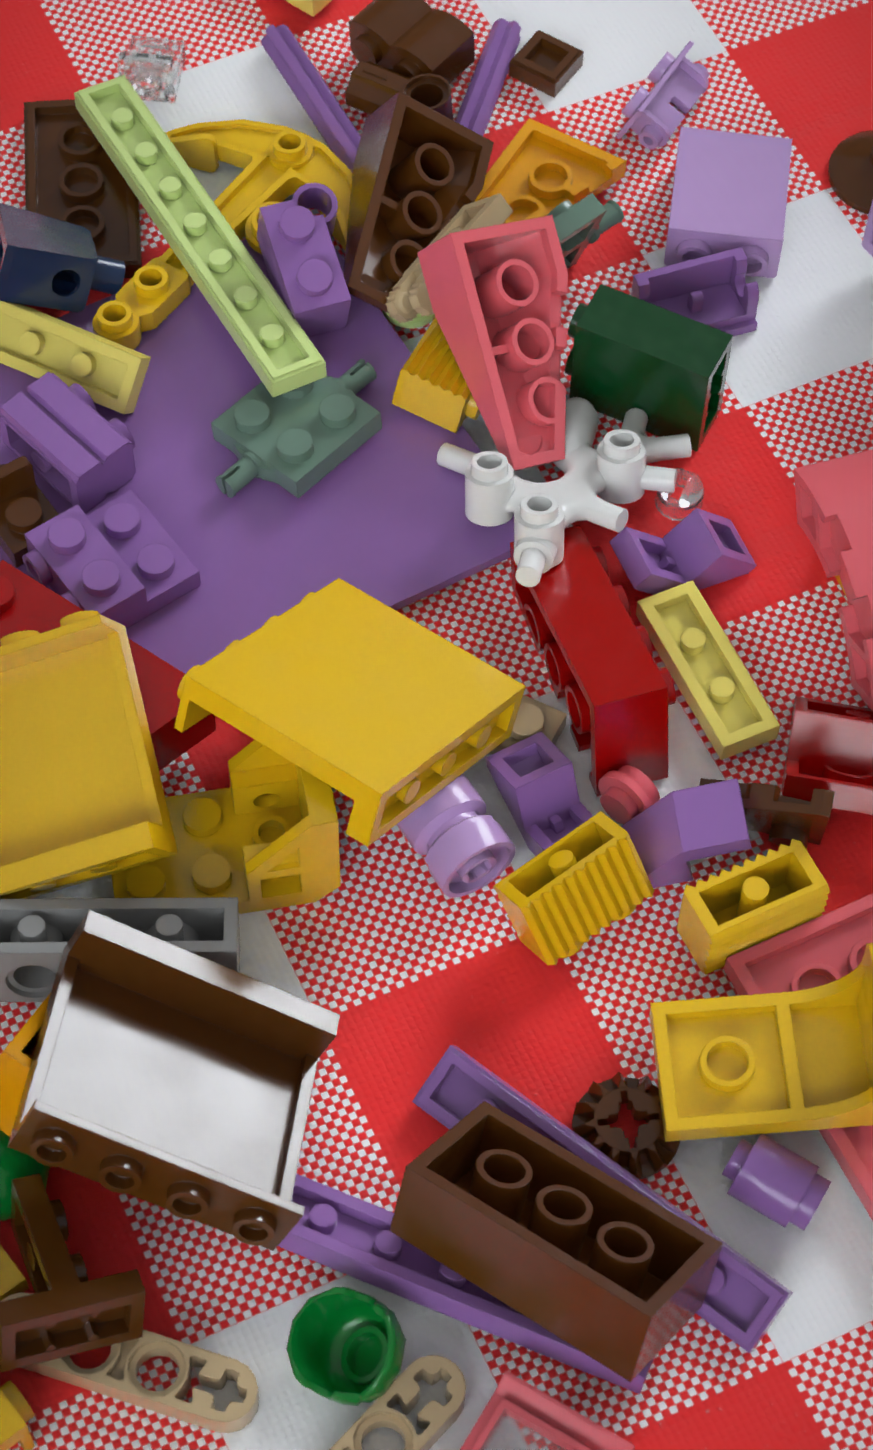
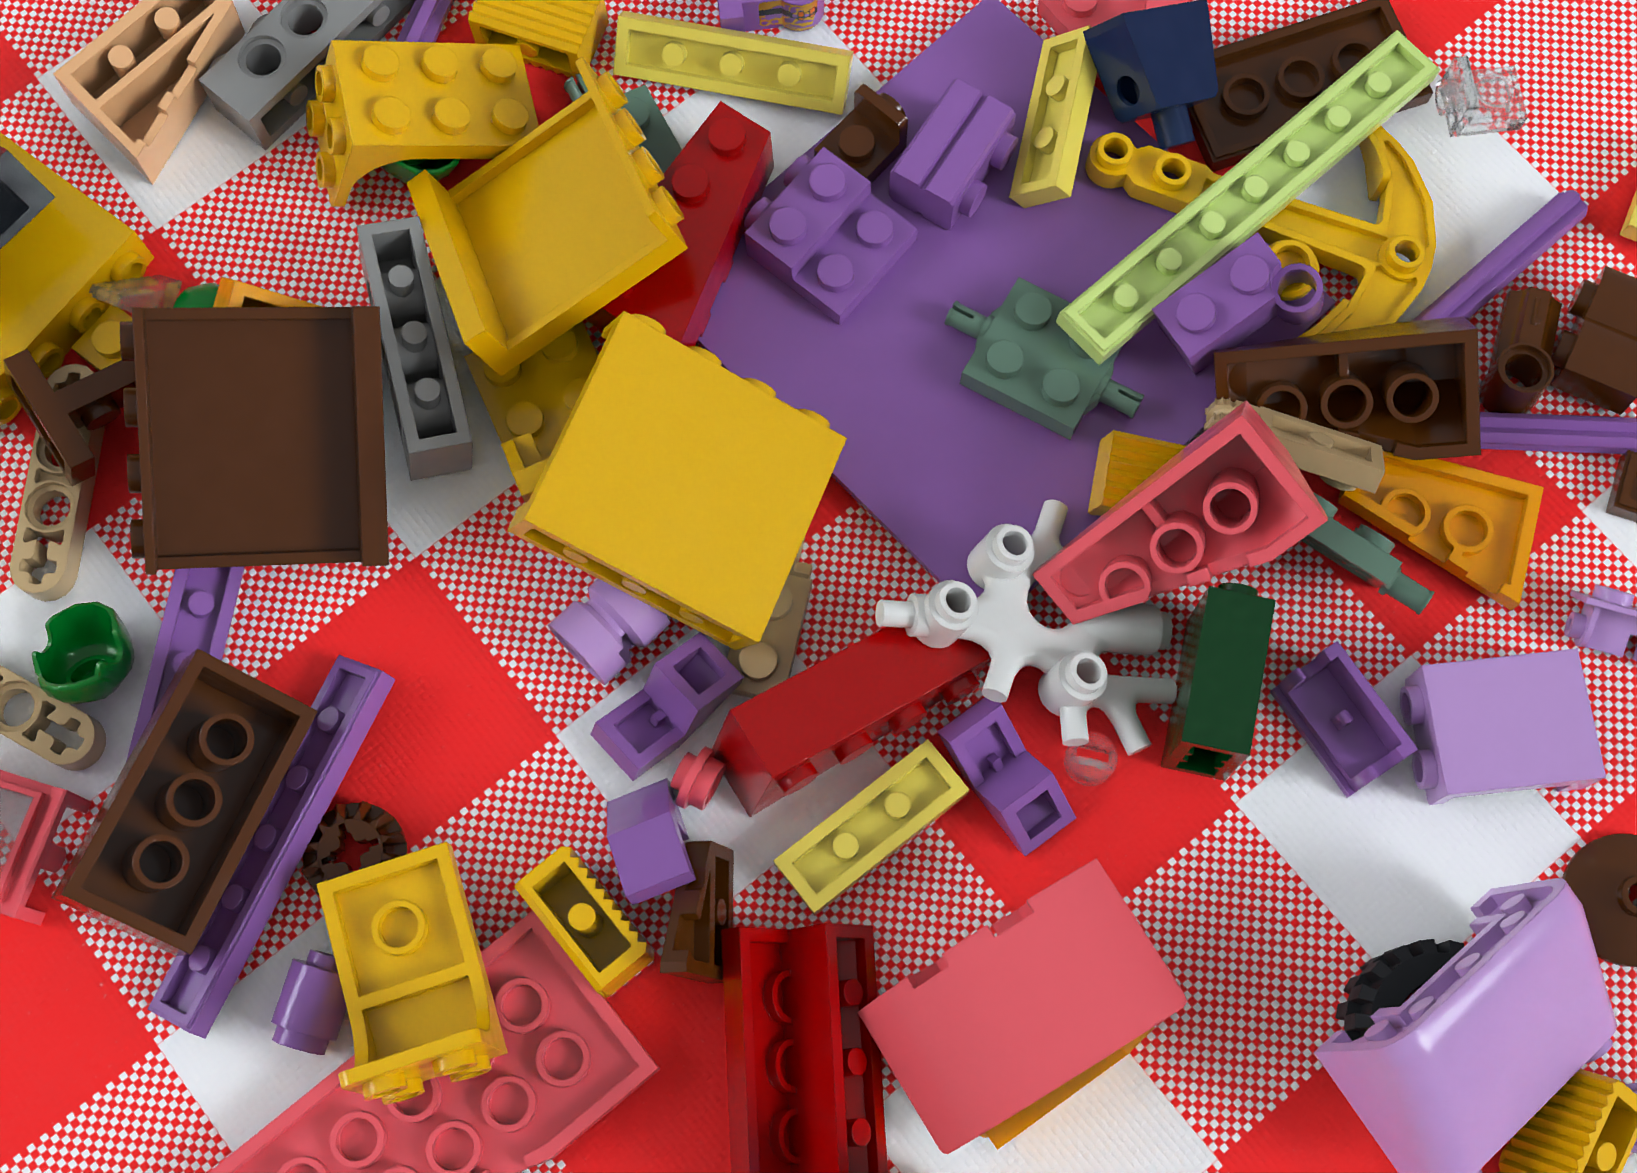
camera: 80 degrees right, 15 degrees up
(575, 889) = (566, 746): yellow brick -> none

